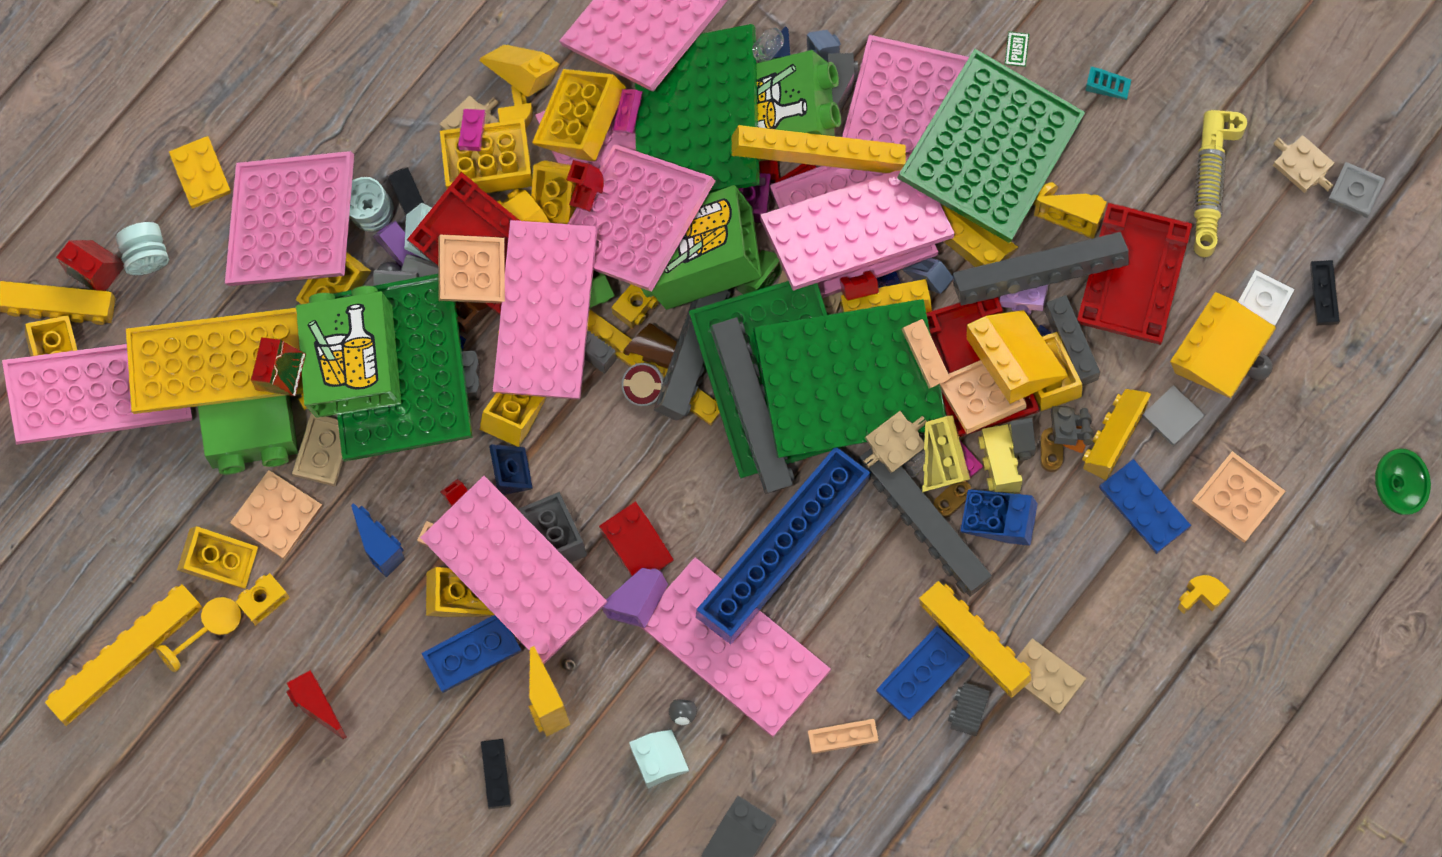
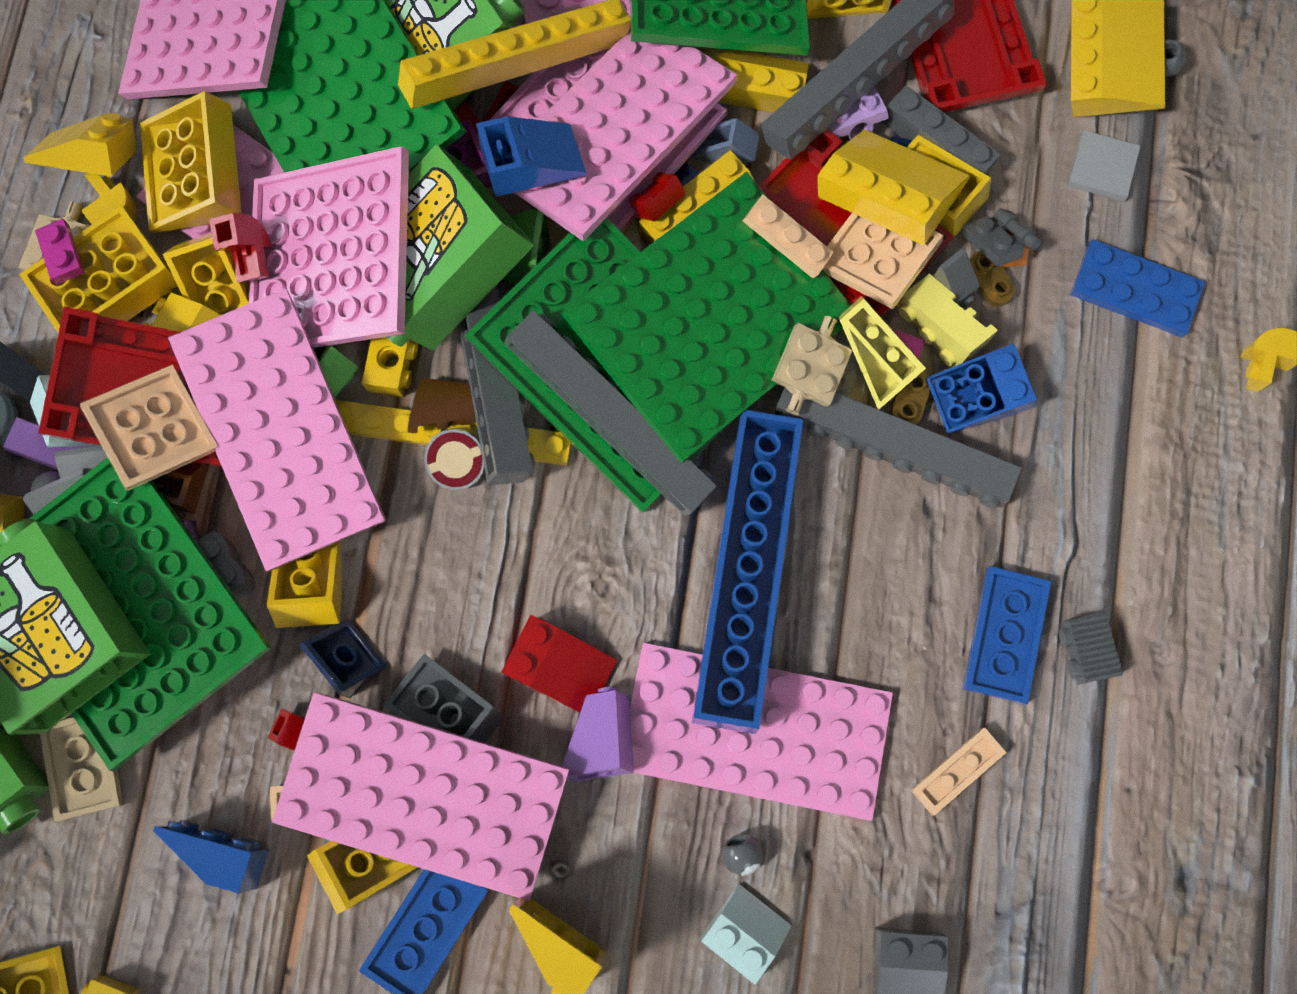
camera: 35 degrees left, 5 degrees up
(276, 514) = (63, 887): light nougat plate -> none
(599, 353) = (377, 448): dark grey brick -> none
(627, 111) = (249, 131): dark pink plate -> none
(788, 219) = (528, 153): none -> blue slope
(975, 639) = (1050, 558): yellow brick -> none
(1051, 678) = (1150, 556): tan plate -> none
(1116, 433) = (1060, 216): yellow slope -> none
(1238, 497) = (1237, 220): light nougat plate -> none

